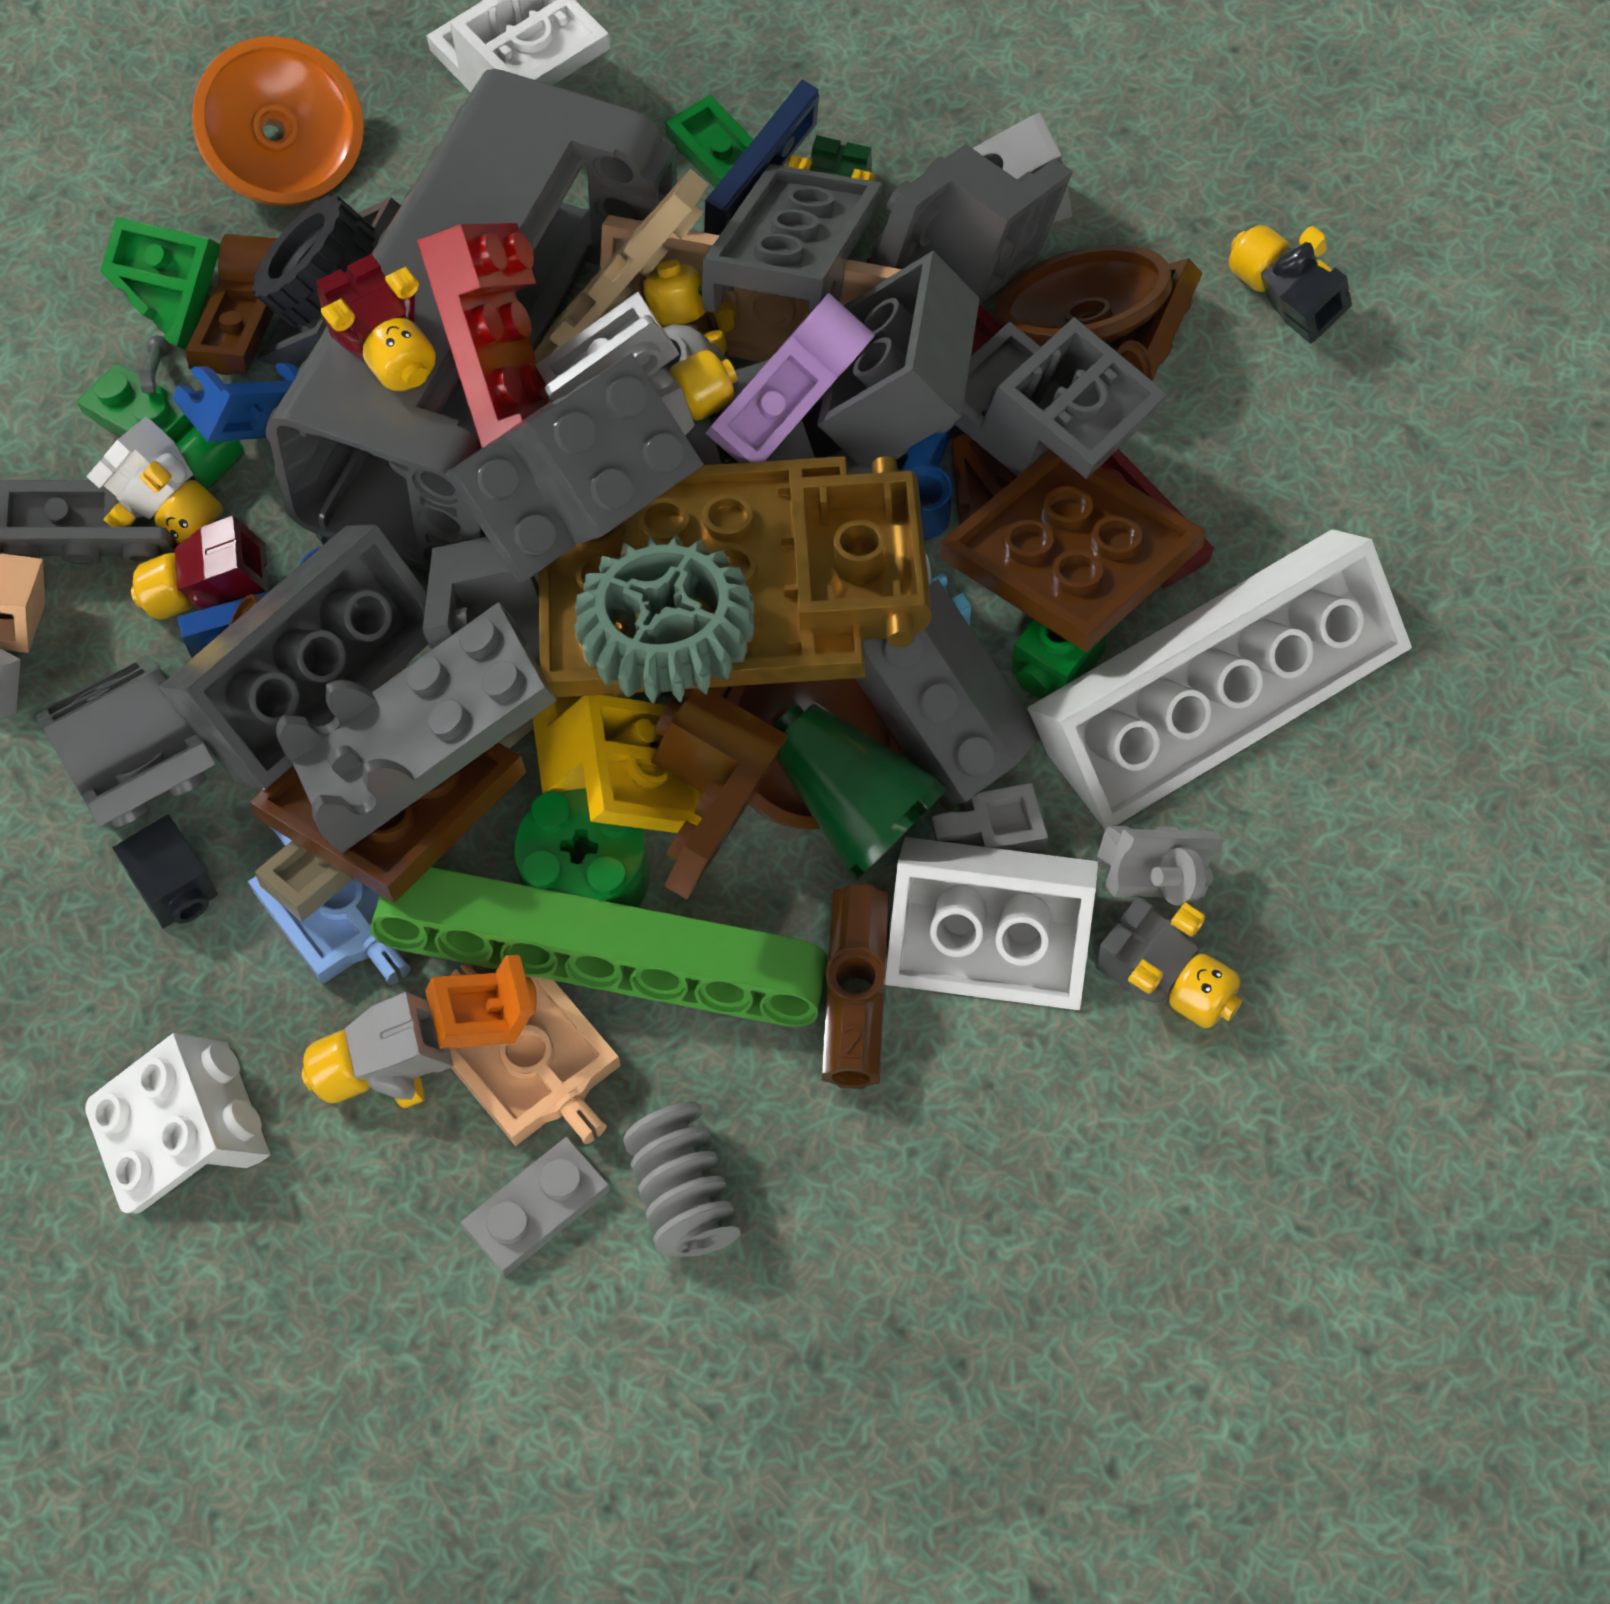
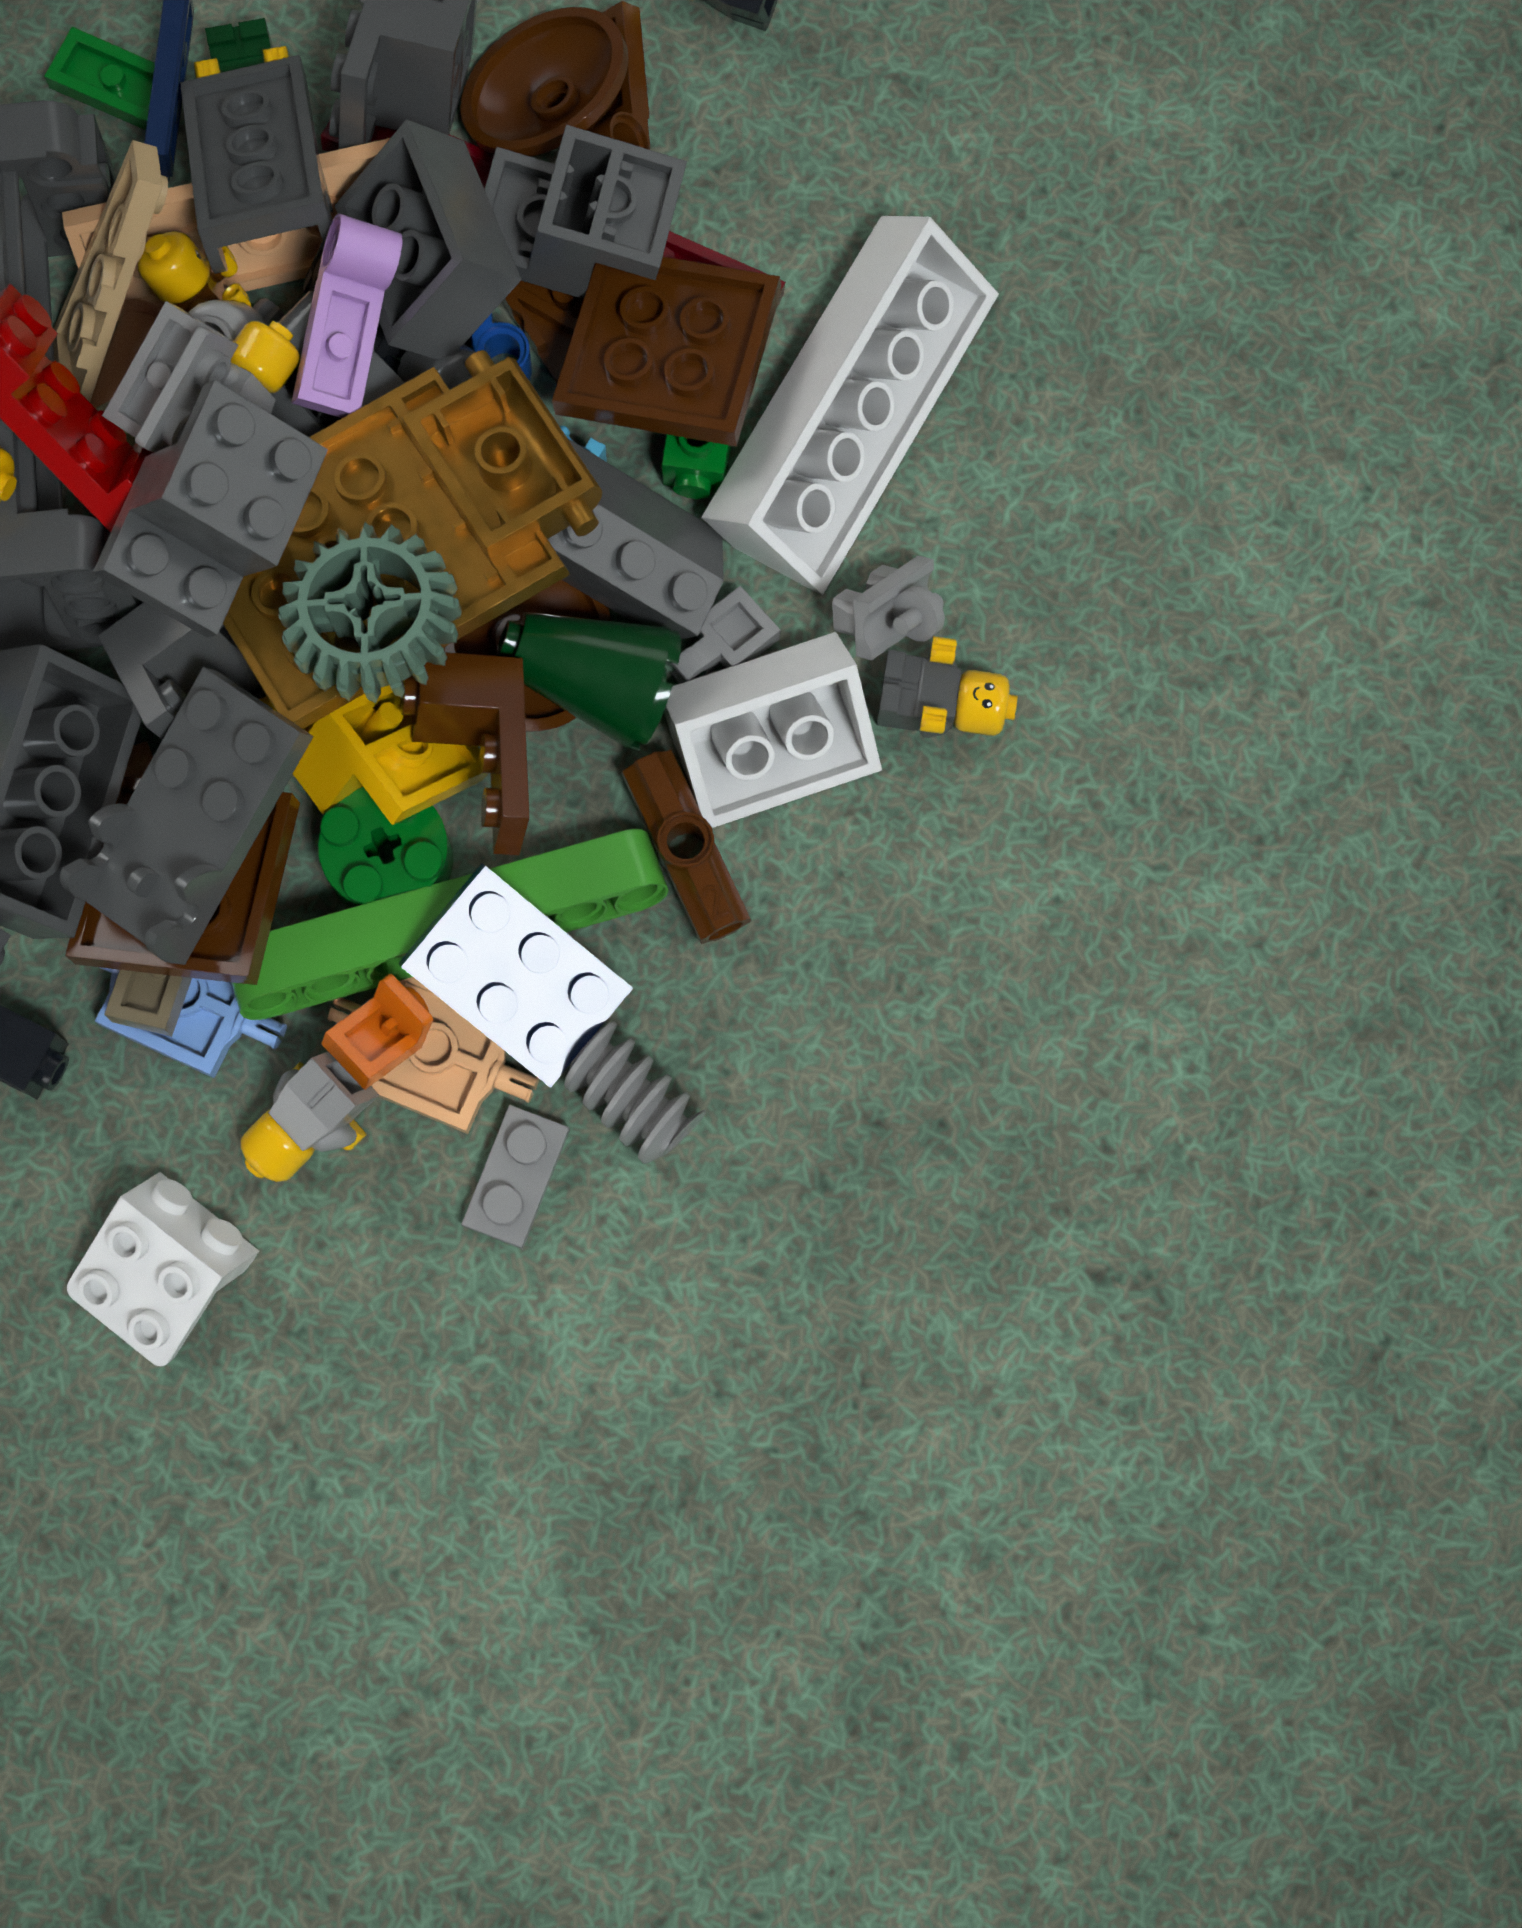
camera: 35 degrees left, 15 degrees up
(631, 1015) = (515, 975): none -> plate

